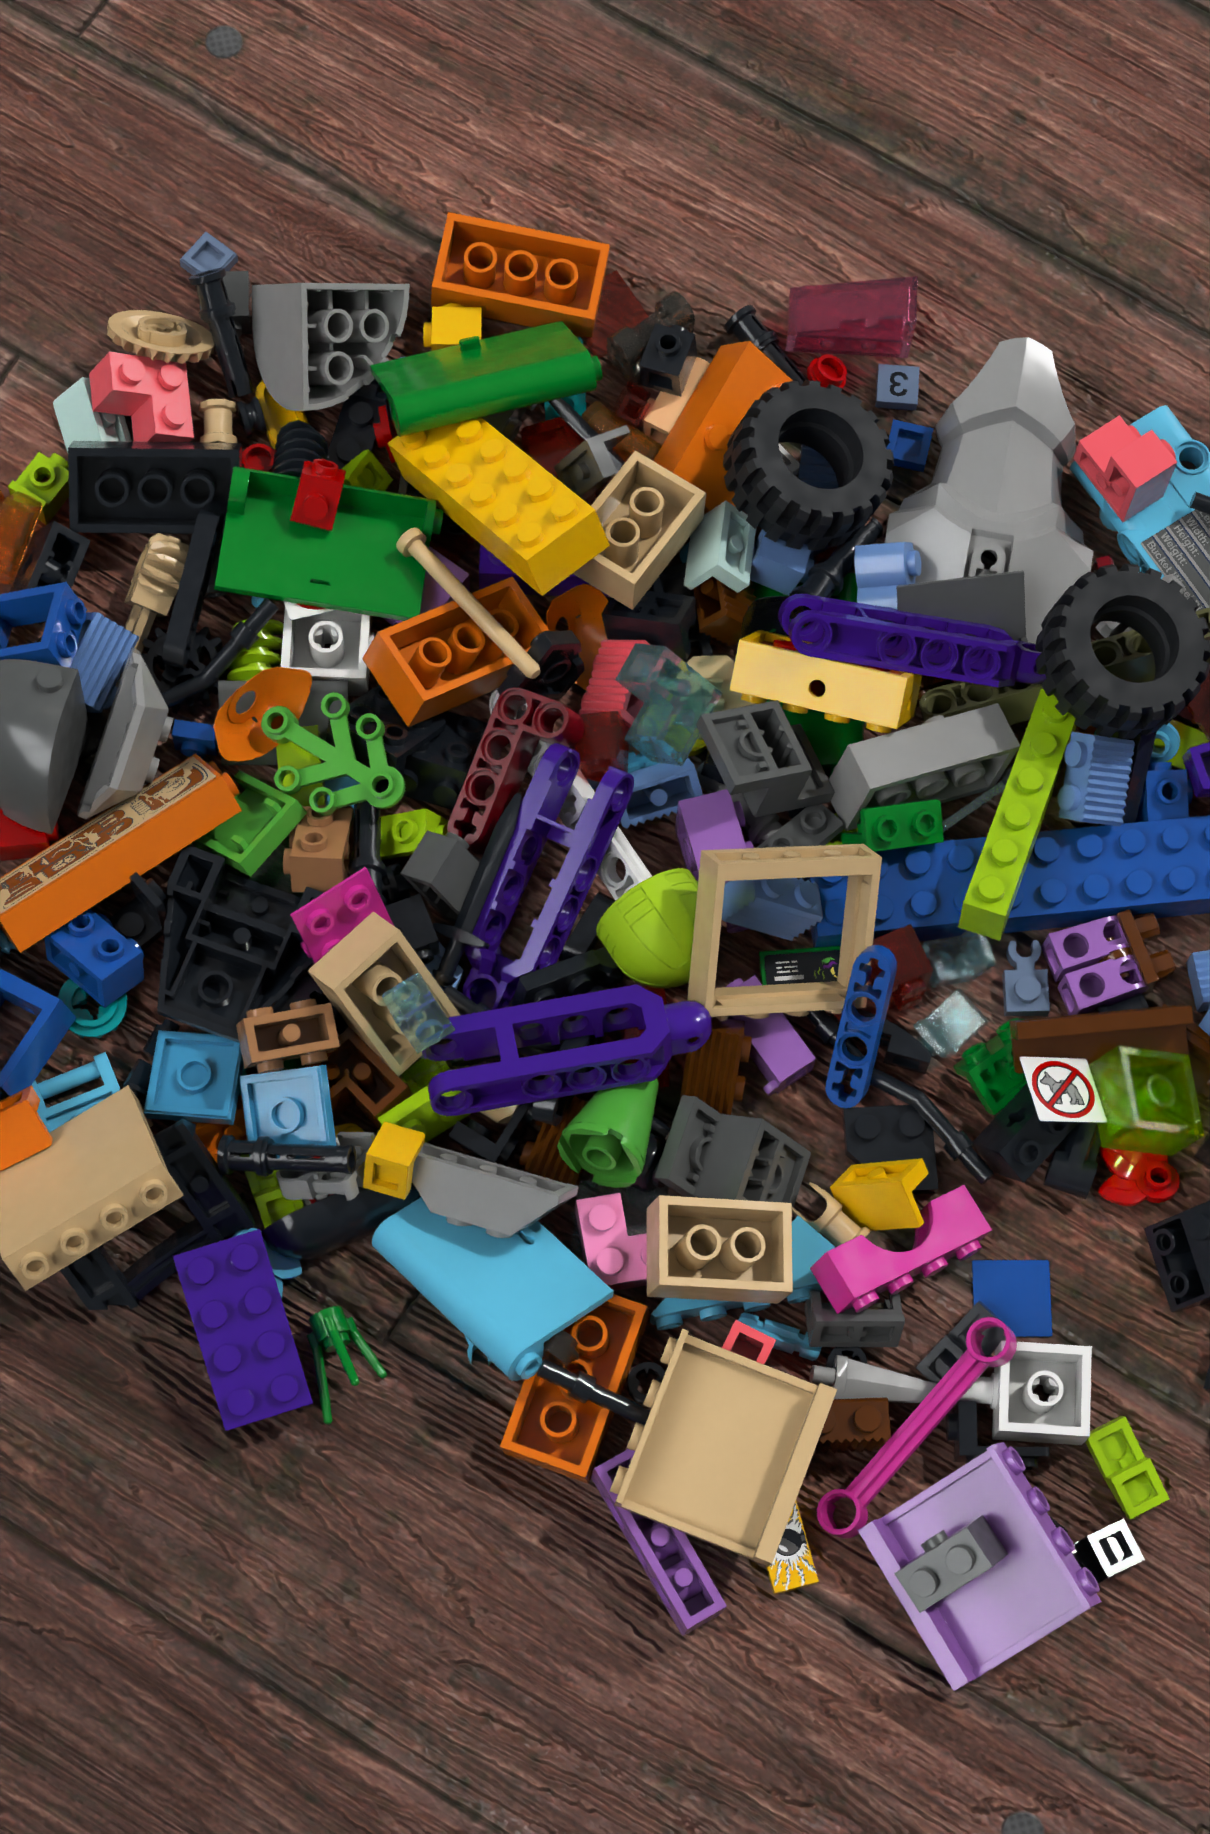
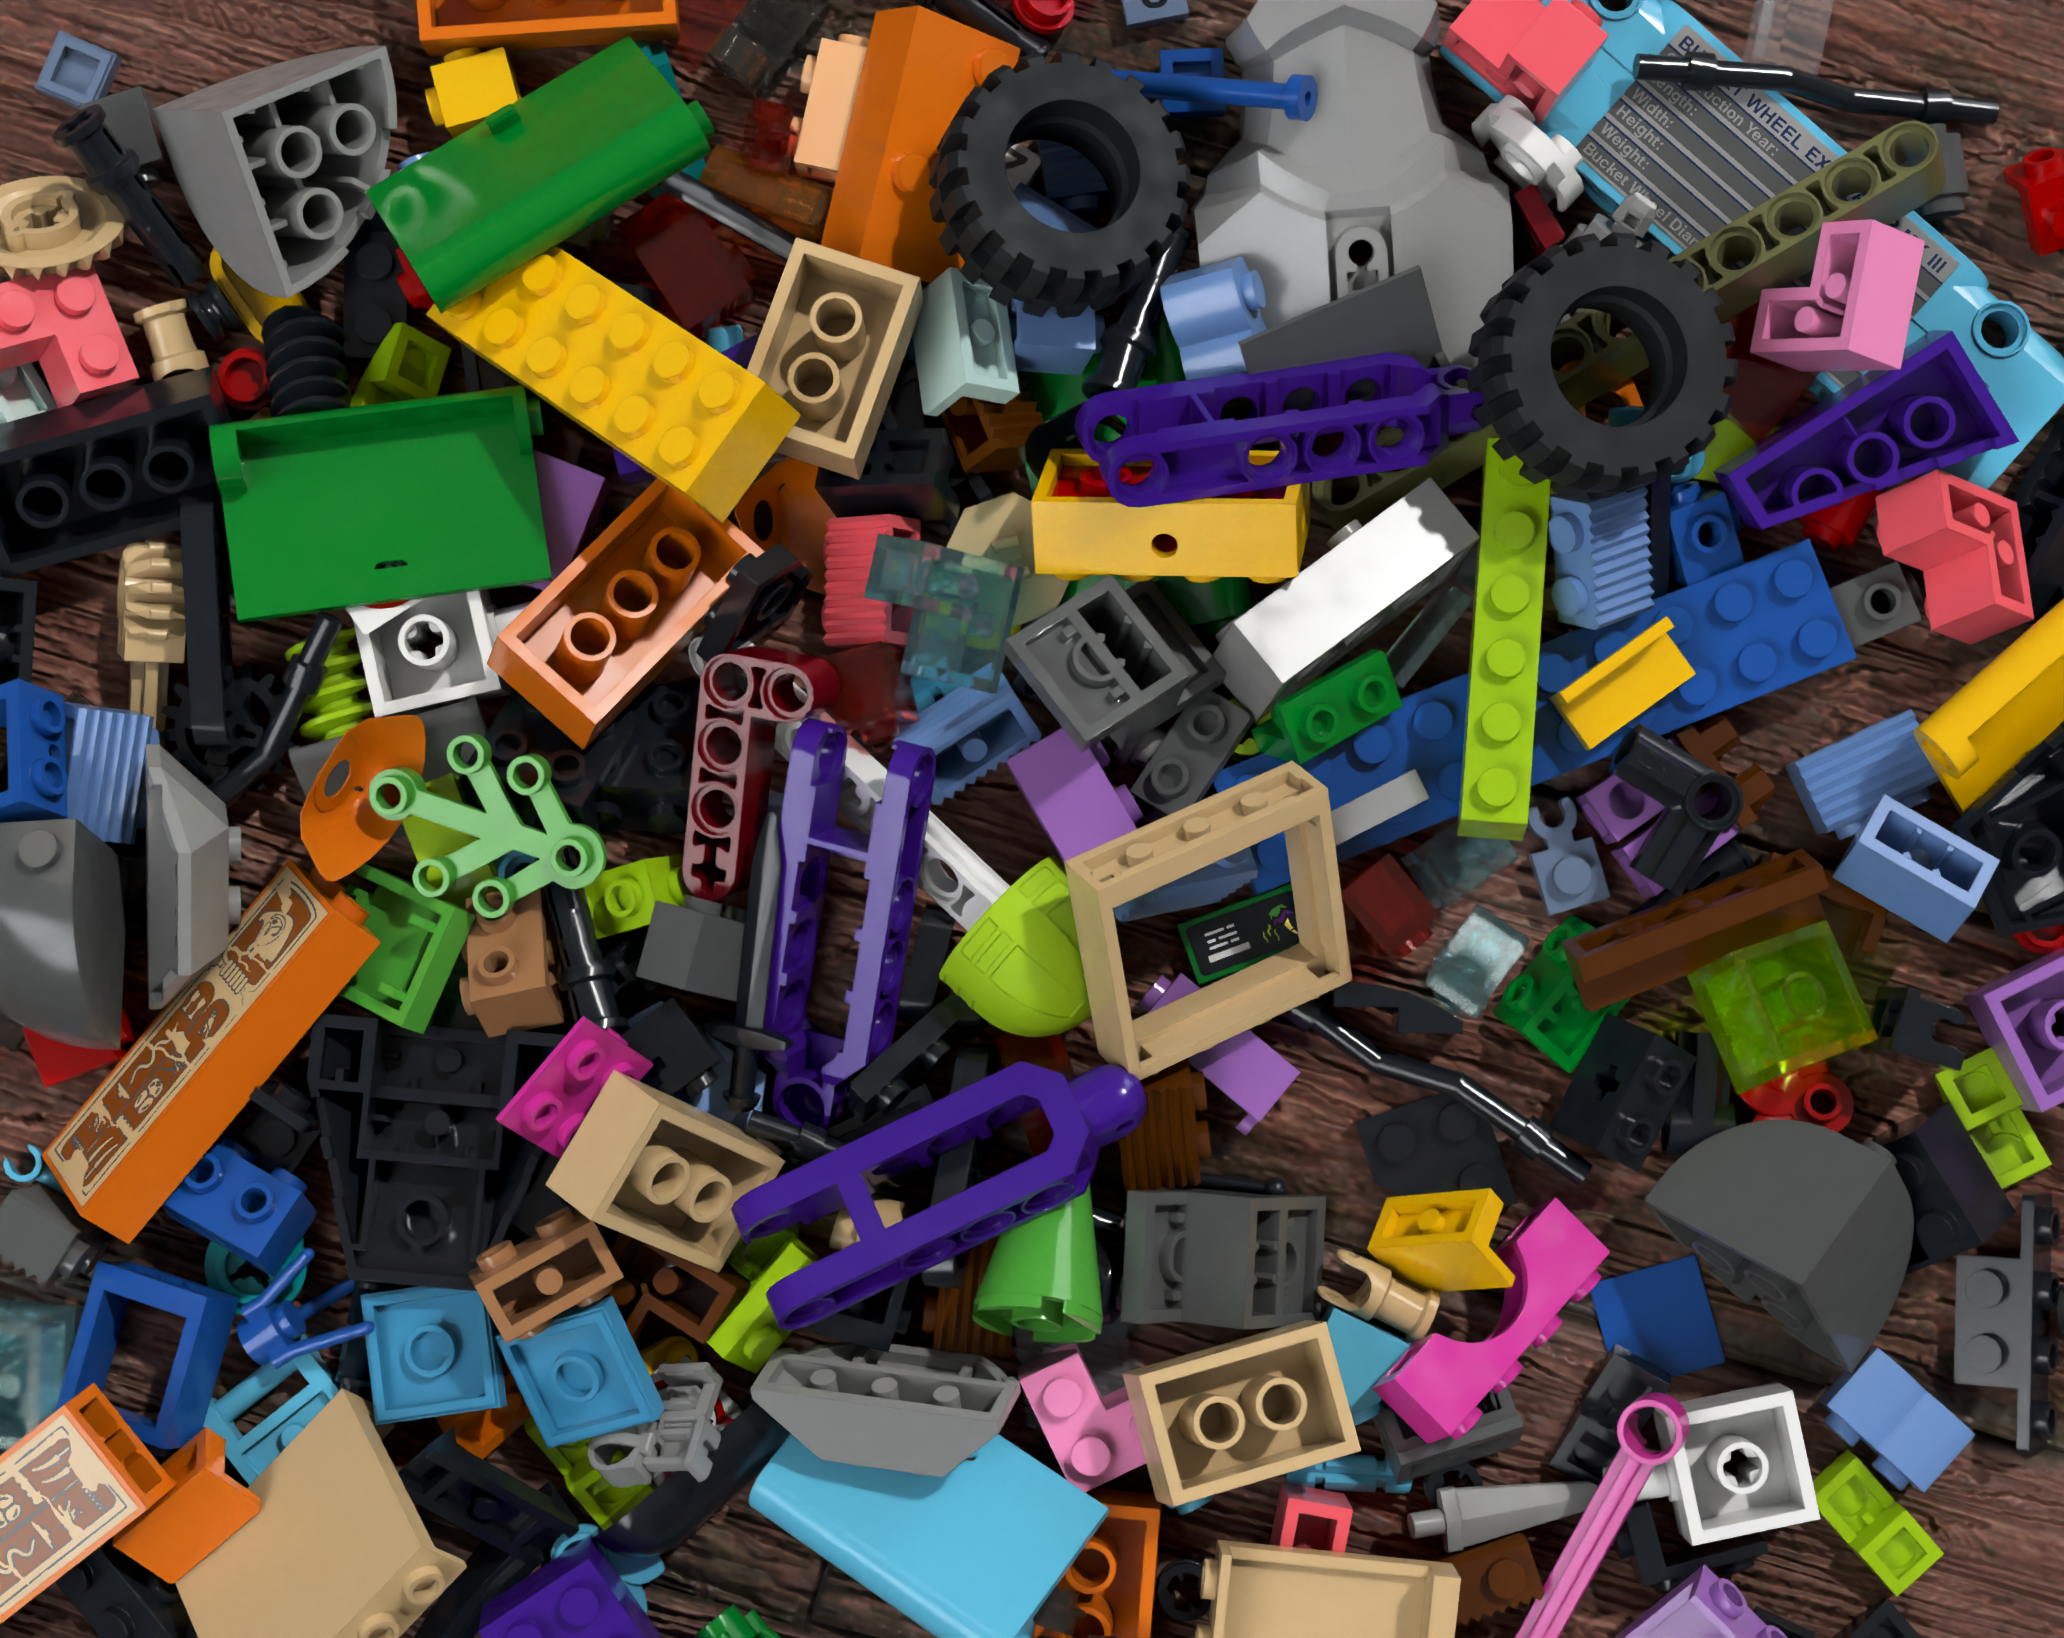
camera: 10 degrees left, 15 degrees up
(95, 1043) = (273, 1329): none -> blue plant
(194, 738) = (277, 835): blue plate -> none
(264, 1157) = (566, 1447): black pin -> none
(318, 494) = (347, 431): red bracket -> none
(392, 1159) = (745, 1404): yellow panel -> none
(413, 544) = (509, 467): tan bar -> none
(417, 1013) = (718, 1204): clear light blue bracket -> none
(590, 463) = (732, 276): dark grey panel -> none
(668, 359) = (804, 58): black brick -> none
(865, 1028) = (1354, 1016): blue beam -> none
(910, 895) = (1377, 806): none -> light grey beam
(971, 454) = (1295, 97): none -> blue bar
(1063, 1089) = (1664, 1031): sticker -> none
(1089, 861) = (1623, 685): none -> yellow panel
(1106, 969) = (1672, 779): none -> black piece
(1111, 532) = (1528, 153): none -> white plate
(1122, 1247) = (1800, 1224): none -> dark grey brick
(1157, 1399) = (1896, 1420): none -> medium blue brick

